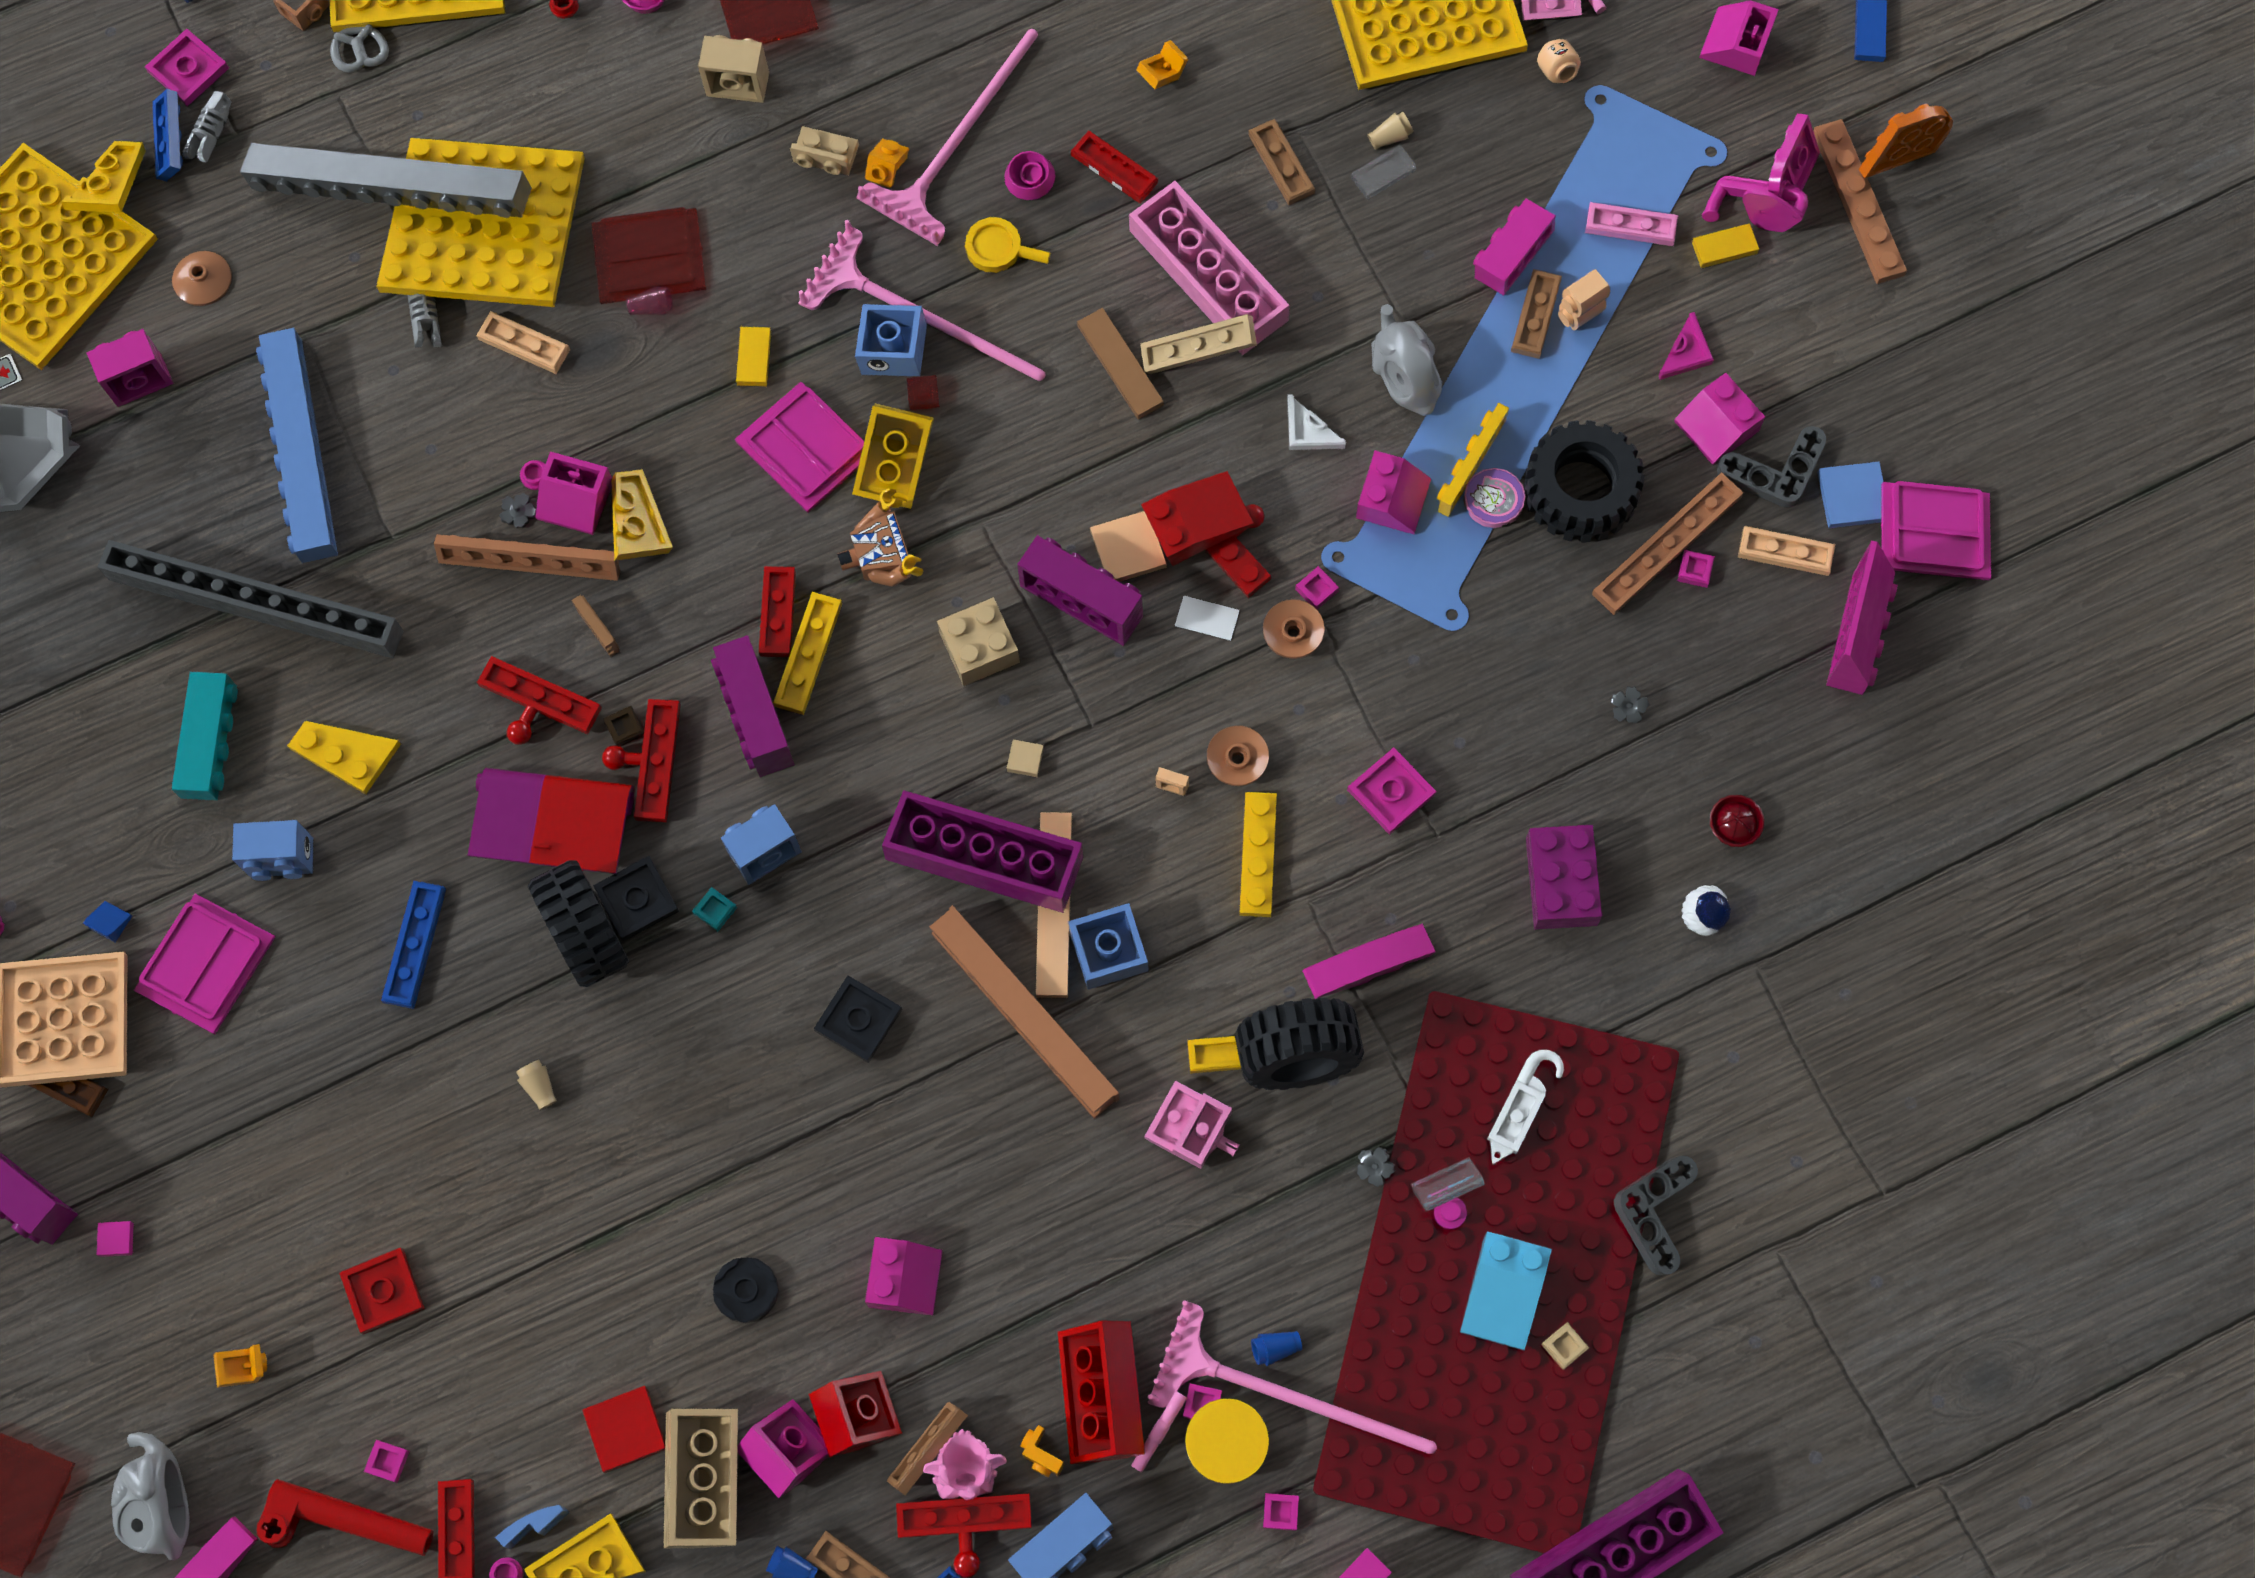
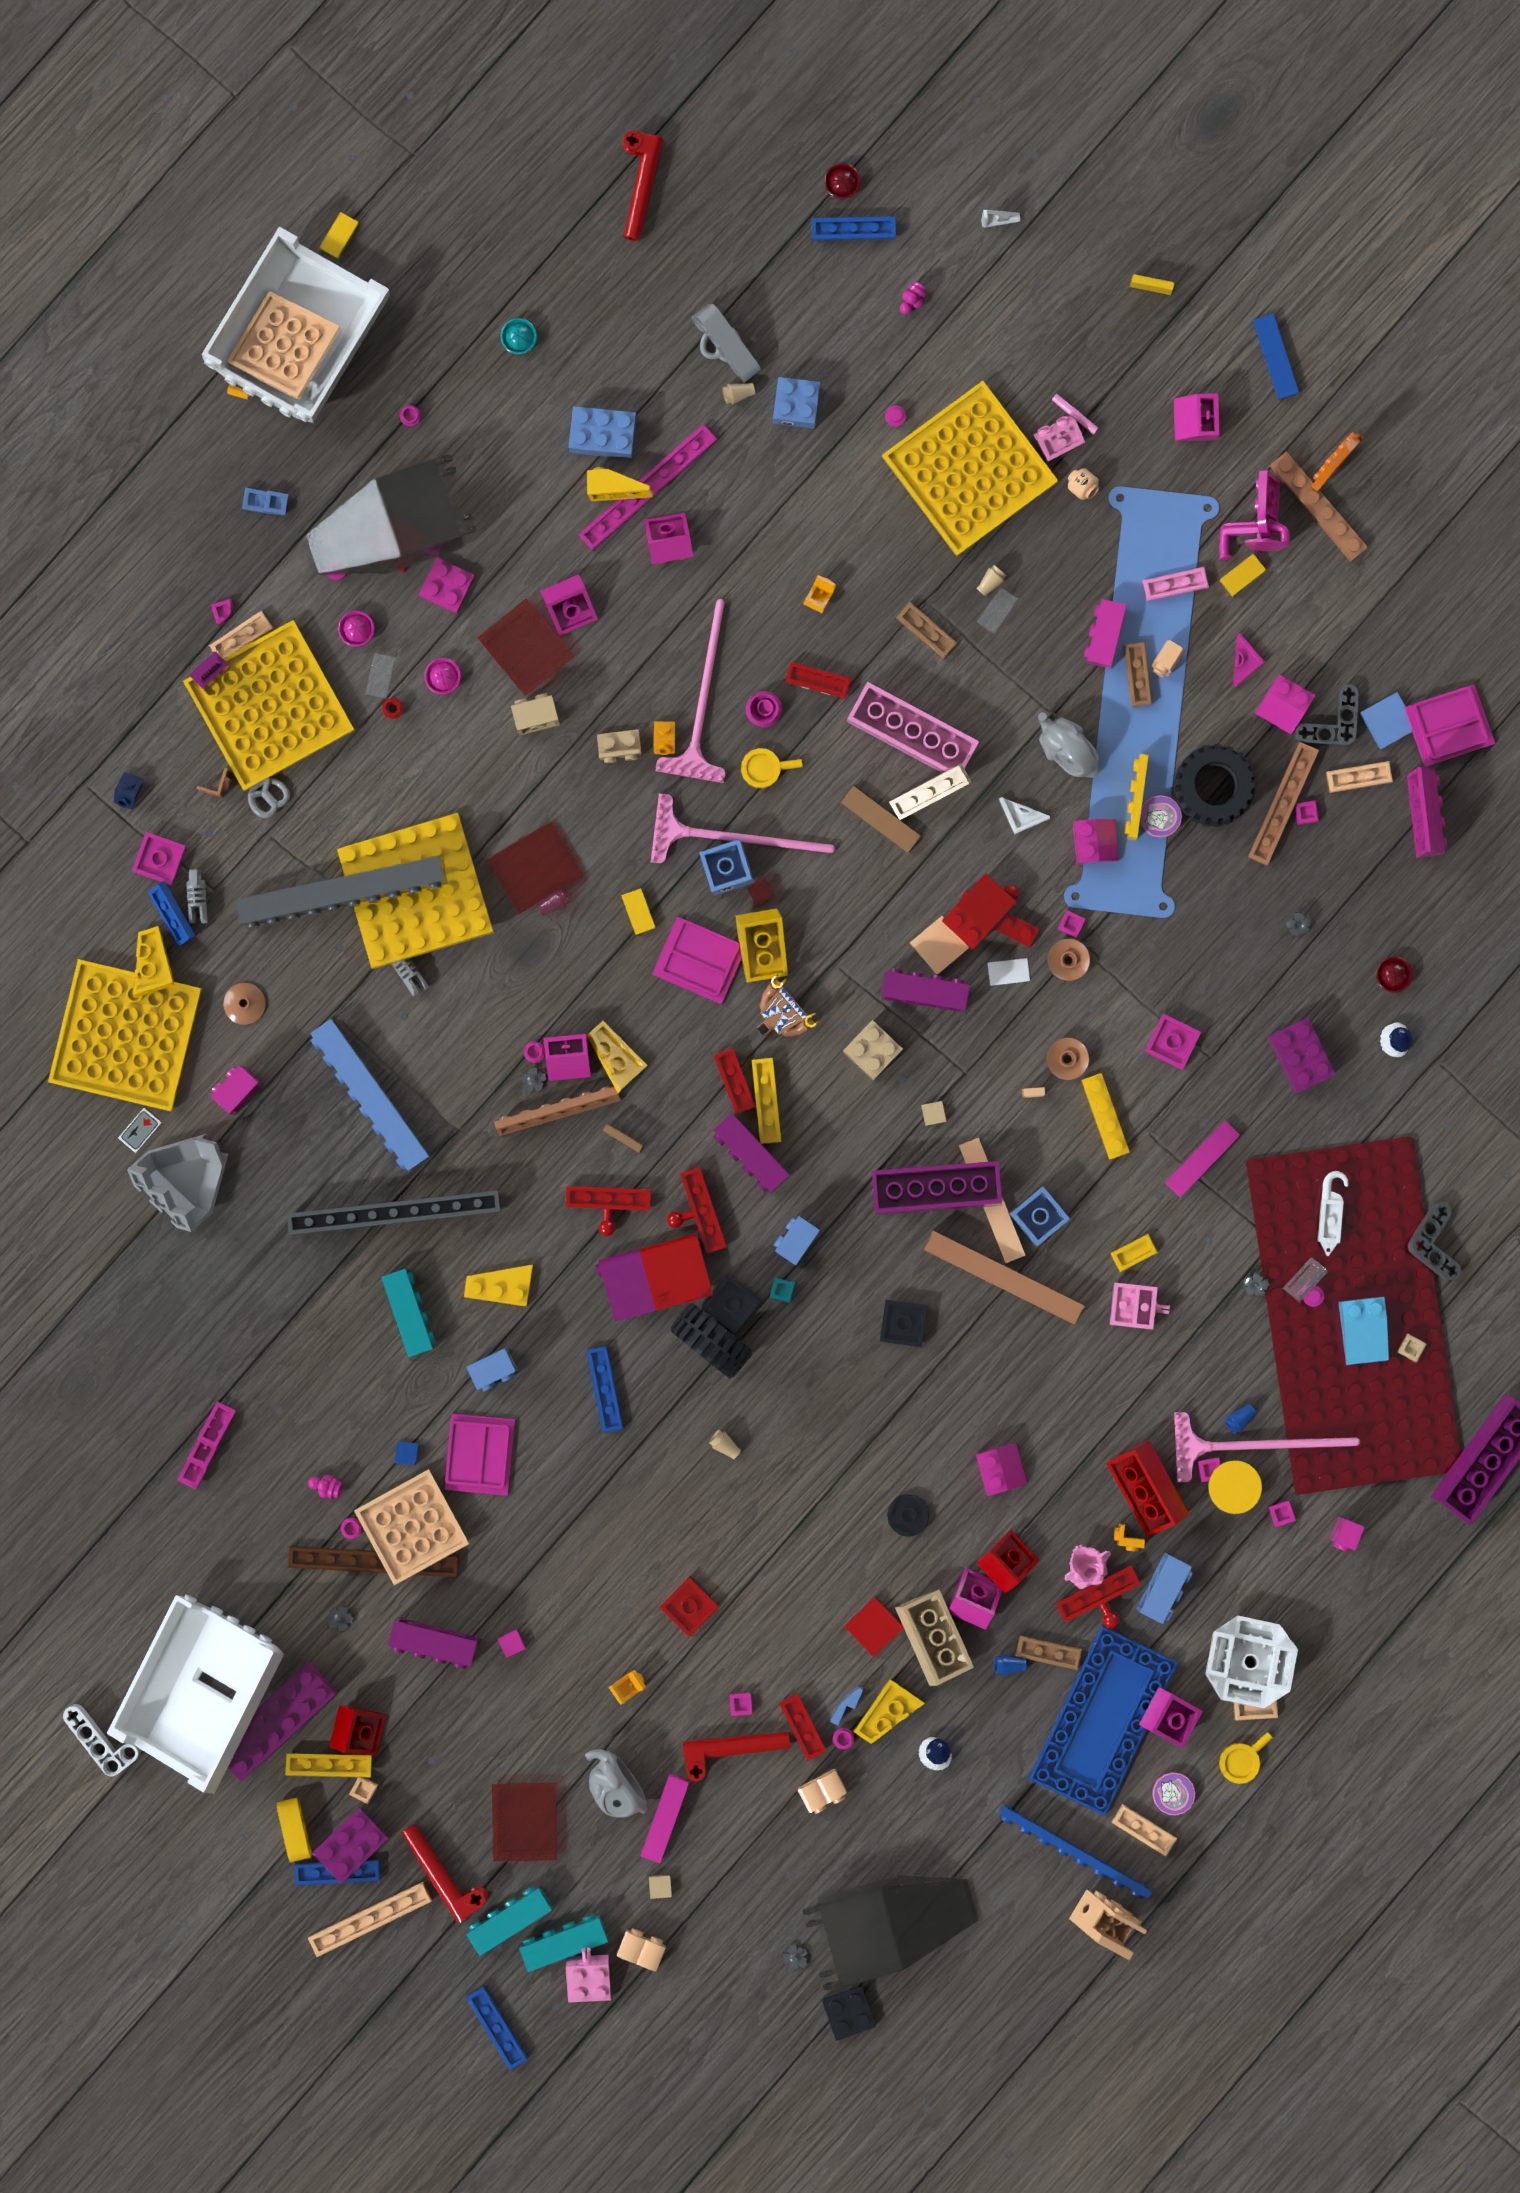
camera: 25 degrees left, 15 degrees up
(523, 342) = (481, 963): light nougat tile -> none
(624, 726) = (670, 1195): dark brown tile -> none
(926, 1448) = (1059, 1564): medium nougat tile -> none
(1159, 1431) = (1191, 1496): bright pink piece -> none
(1299, 1043) = (1185, 1234): black tyre -> none

